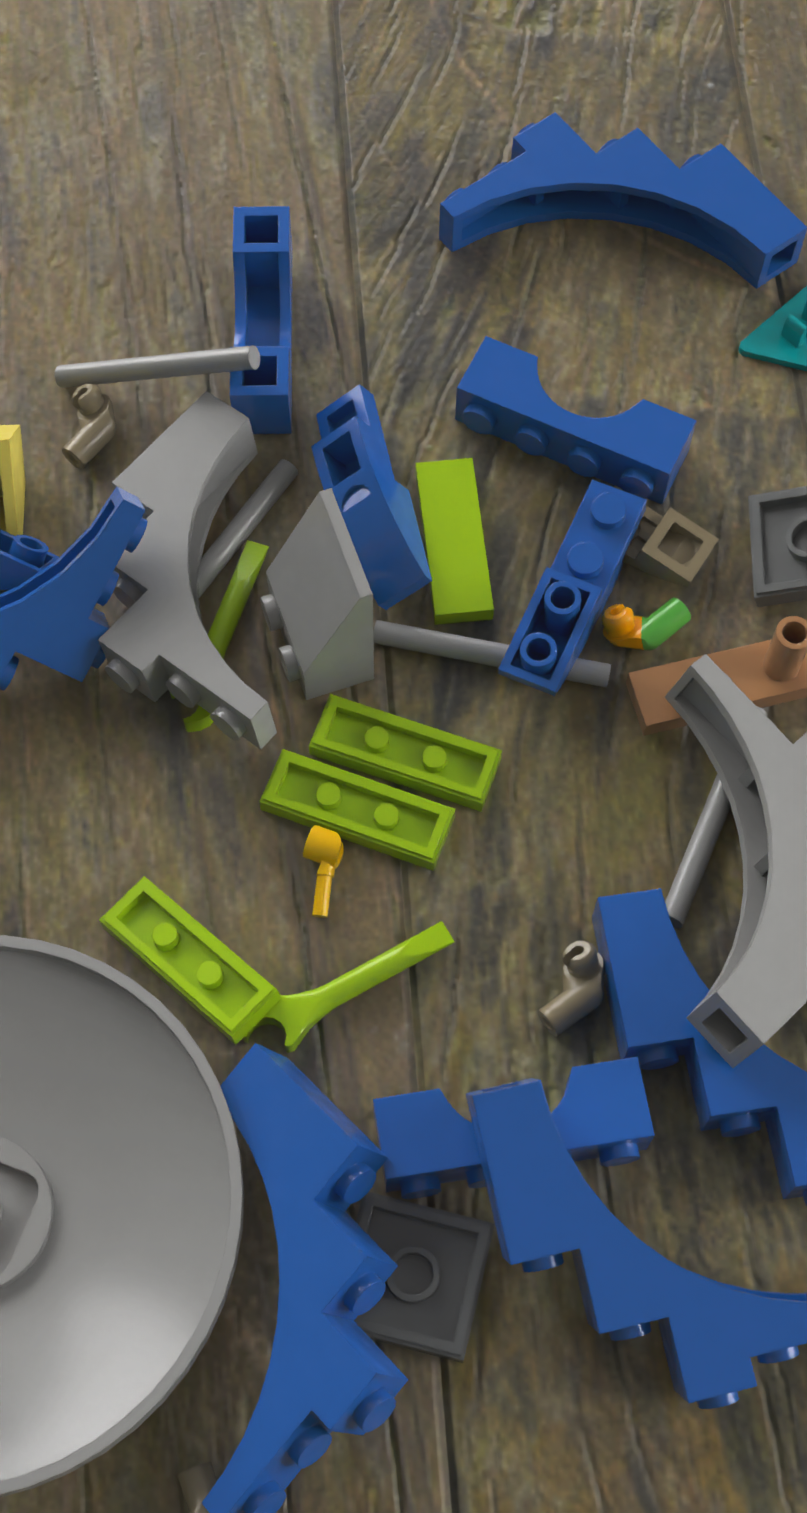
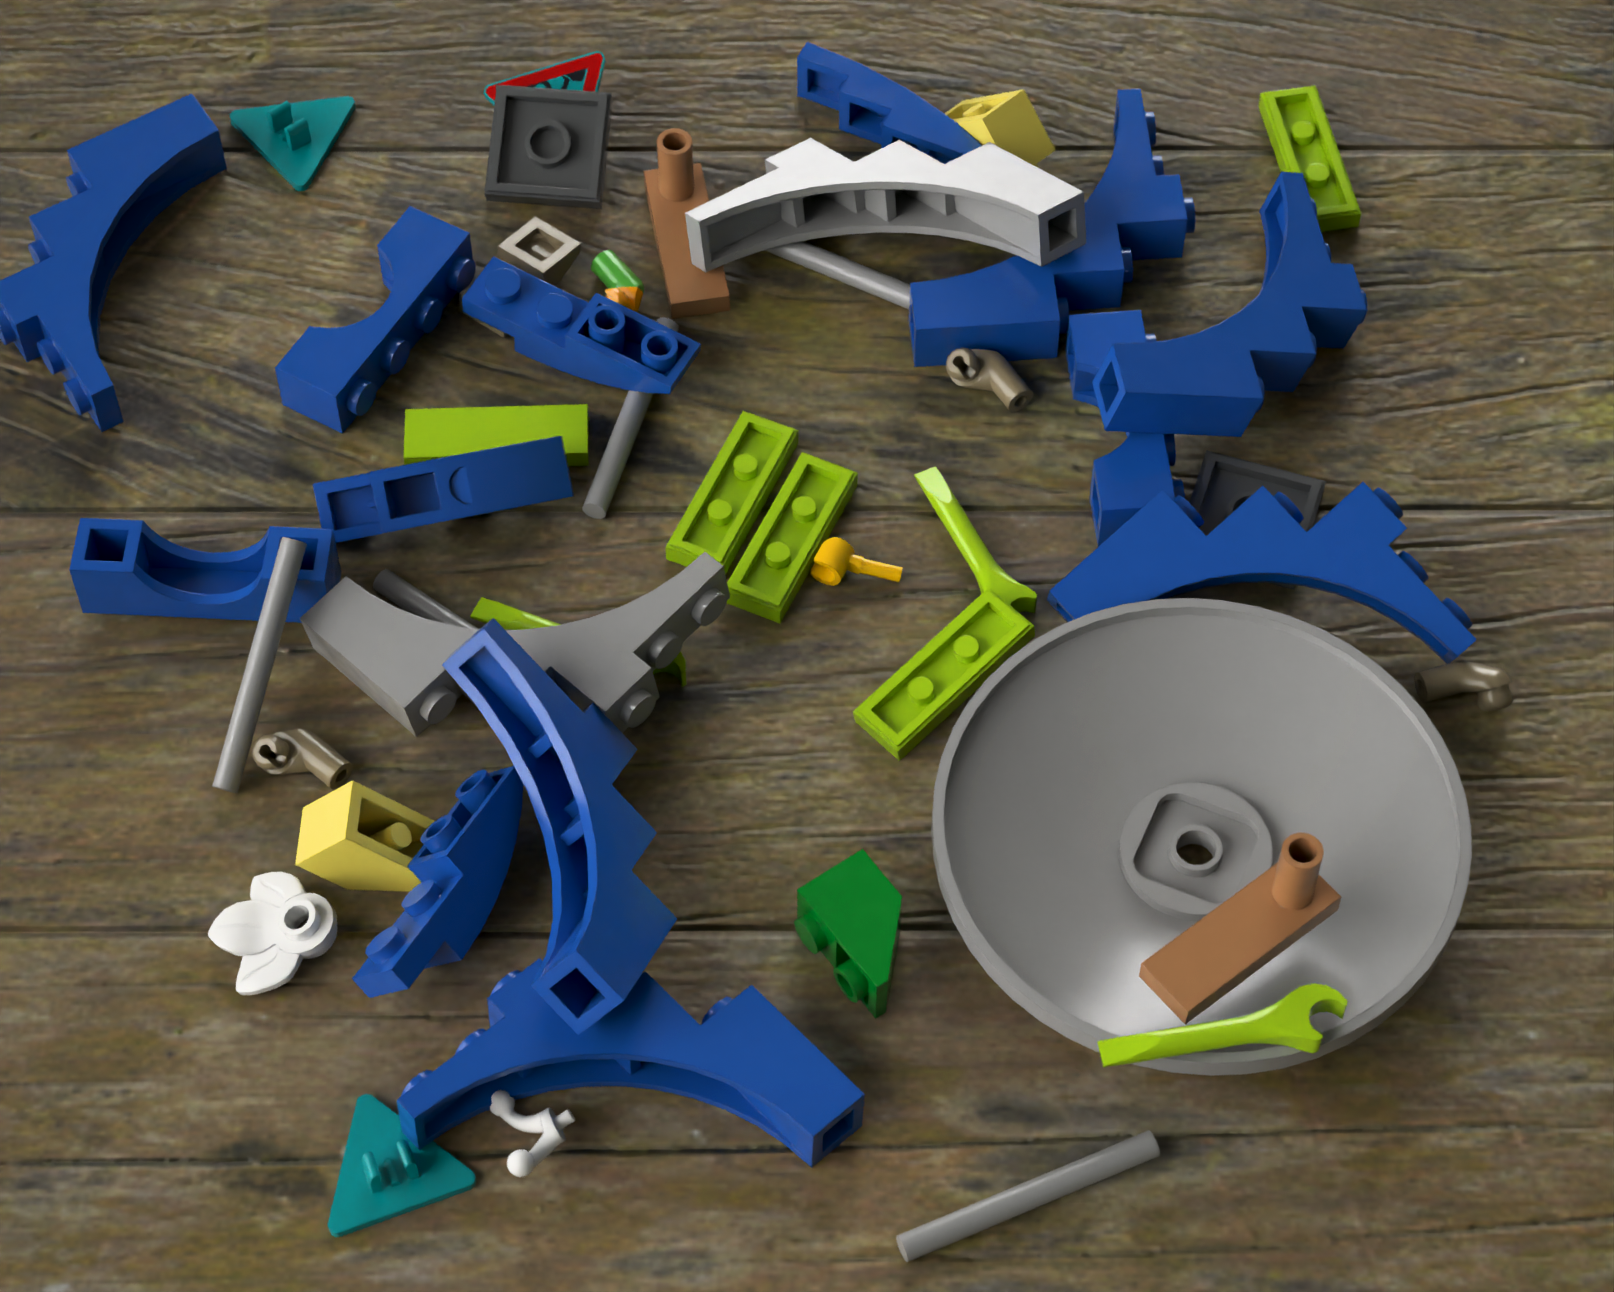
camera: 85 degrees left, 10 degrees down
(321, 603) = (585, 508): light grey slope -> none

